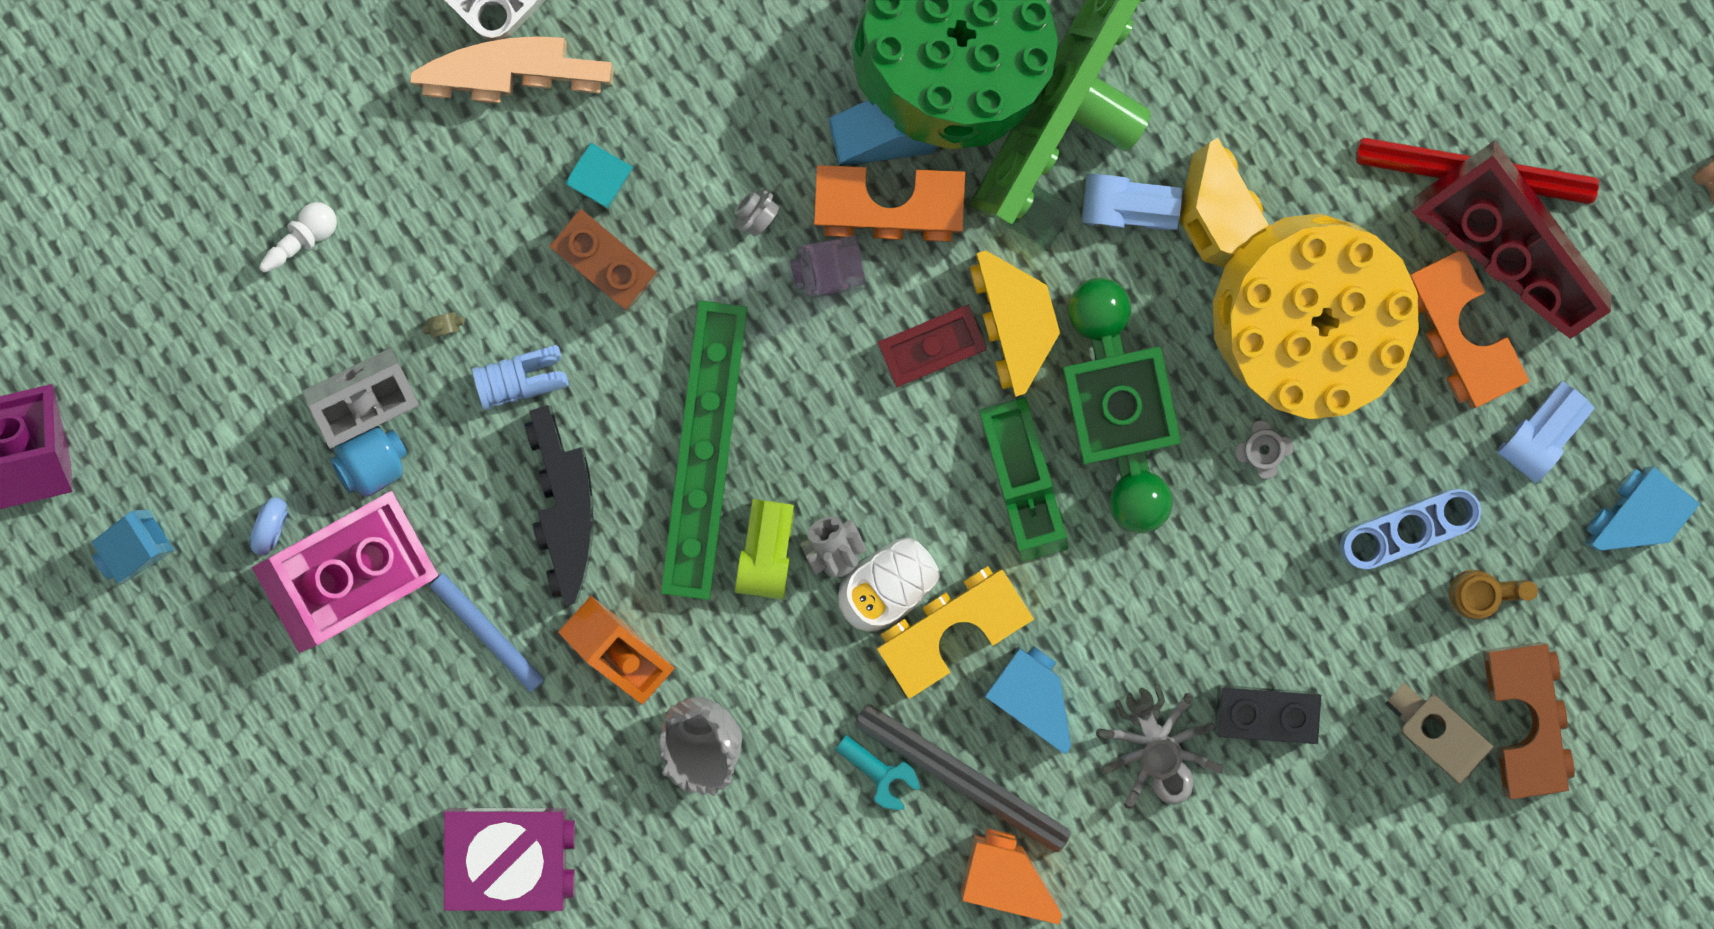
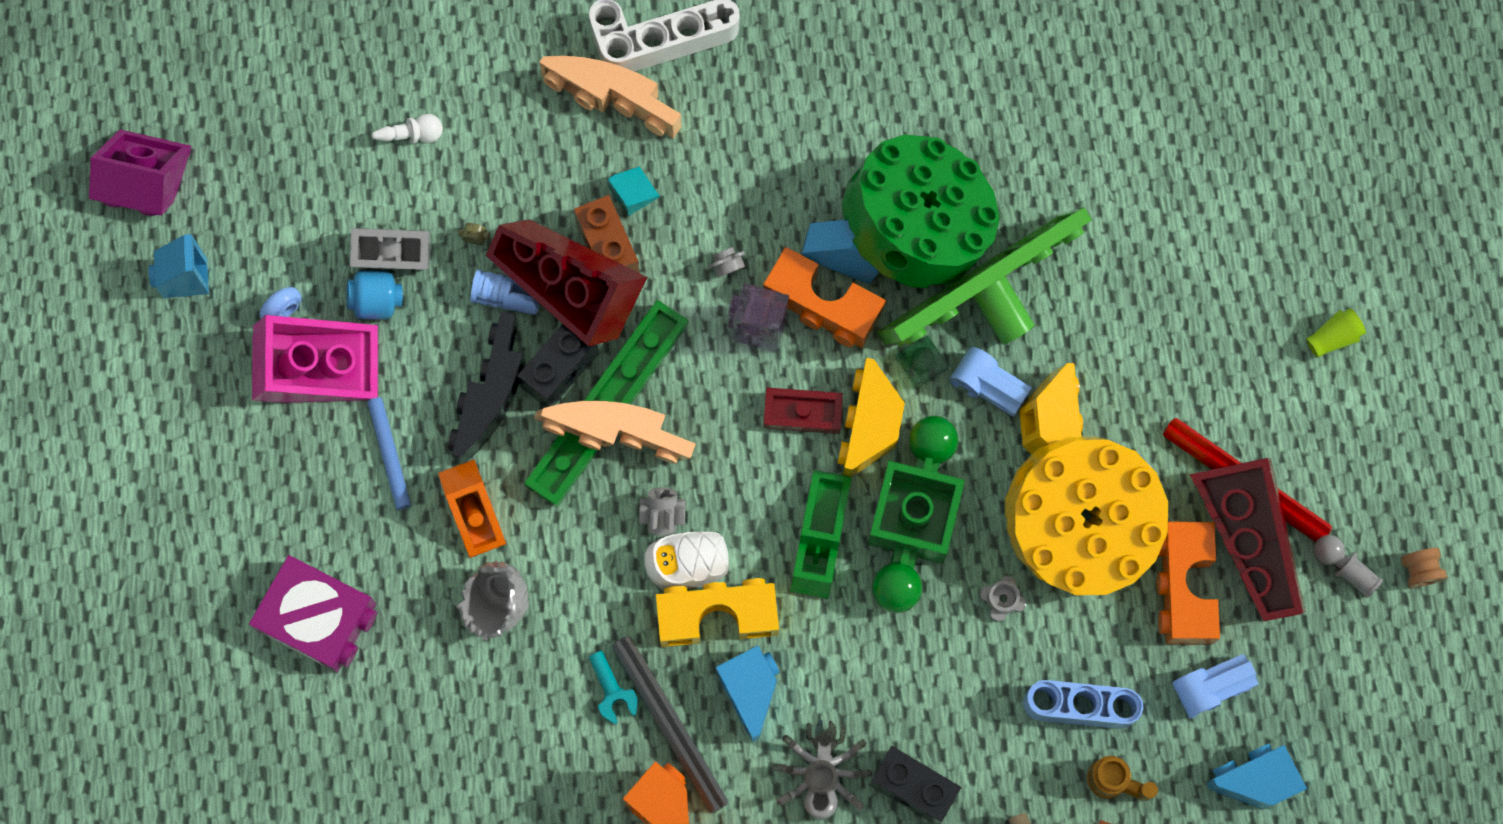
camera: 25 degrees right, 15 degrees down
(586, 336) = (568, 279): none -> dark red wedge
(626, 436) = (556, 366): none -> black brick
(716, 482) = (601, 421): none -> light nougat slope
(765, 560) = (610, 496): lime piece -> none
(1609, 209) = (1331, 551): none -> light grey pin

